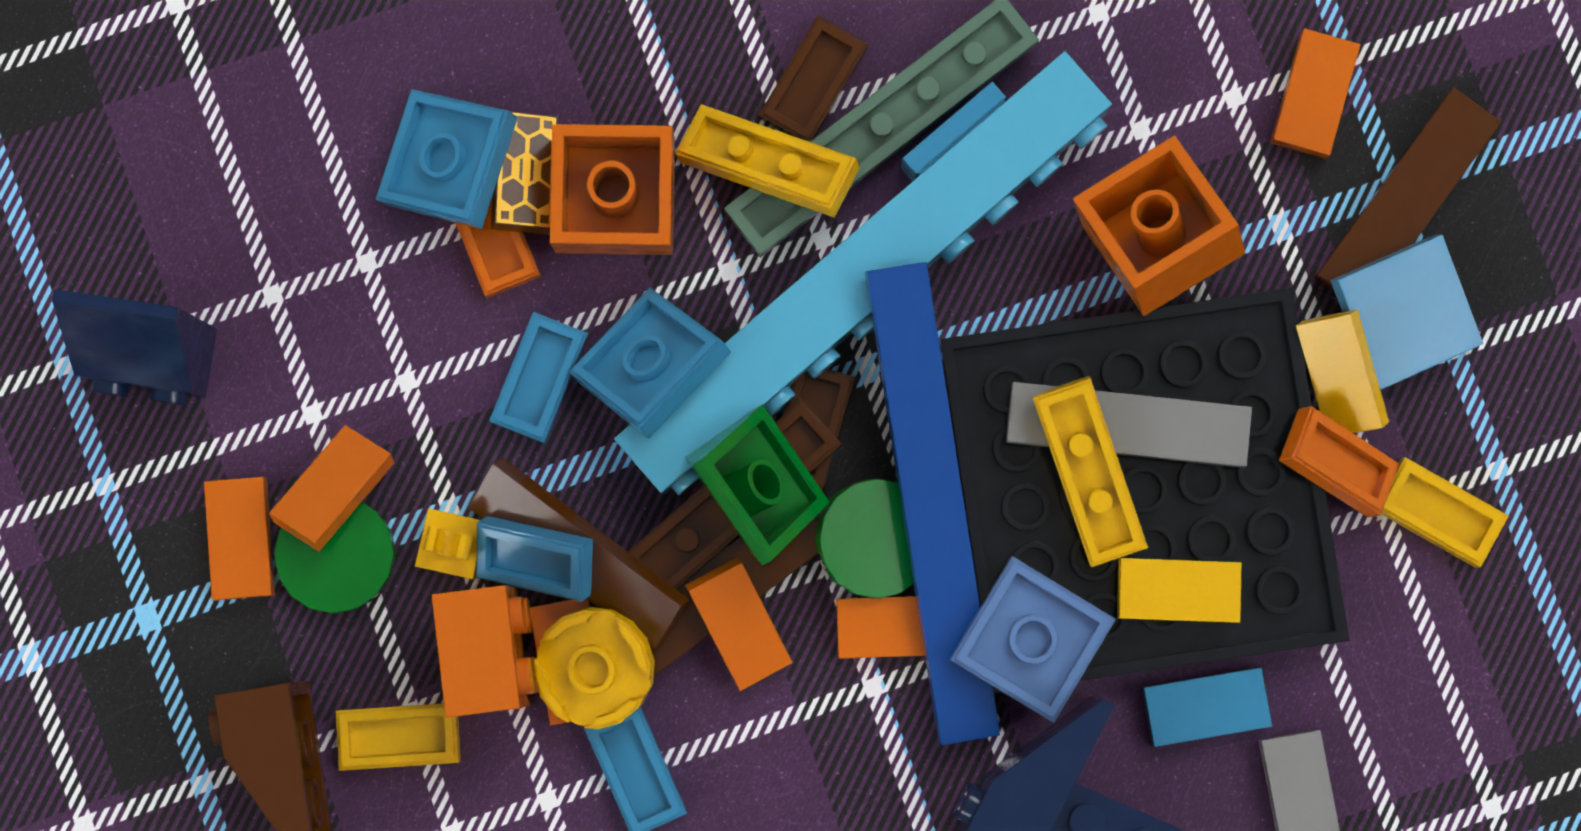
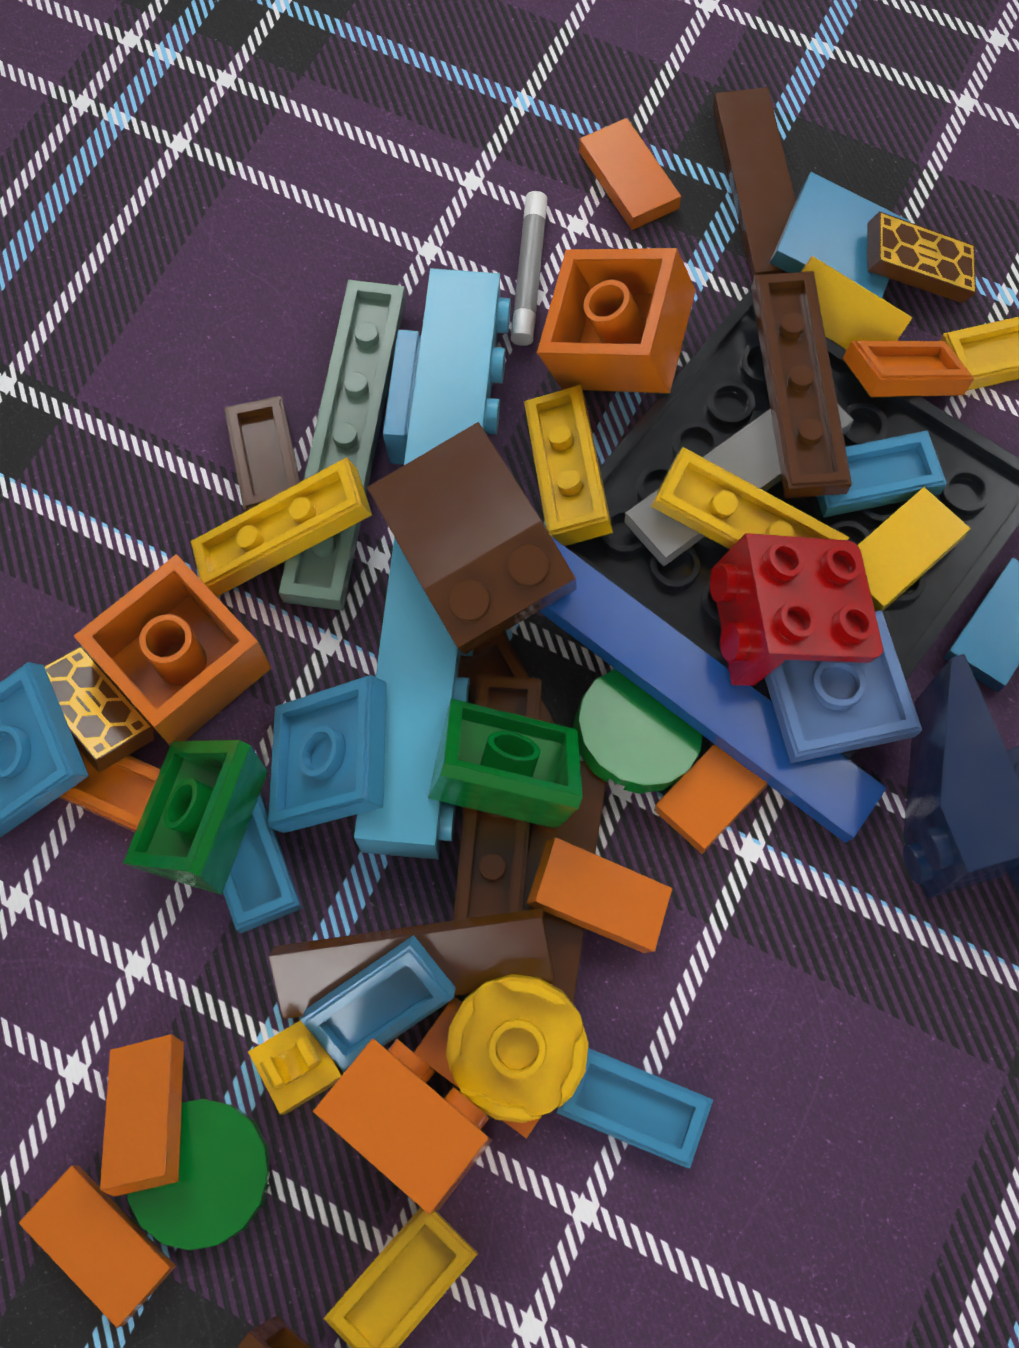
camera: 40 degrees left, 15 degrees down
(527, 321) = (198, 813): none -> green slope
(874, 311) = (472, 538): none -> reddish brown slope
(1015, 301) = (567, 467): none -> yellow tile
(1055, 561) = (792, 603): none -> red bracket
(1156, 104) = (529, 269): none -> light grey bar
(1224, 518) = (887, 473): none -> dark azure tile
(1235, 403) = (800, 385): none -> reddish brown tile
(1451, 383) = (921, 257): none -> reddish brown tile

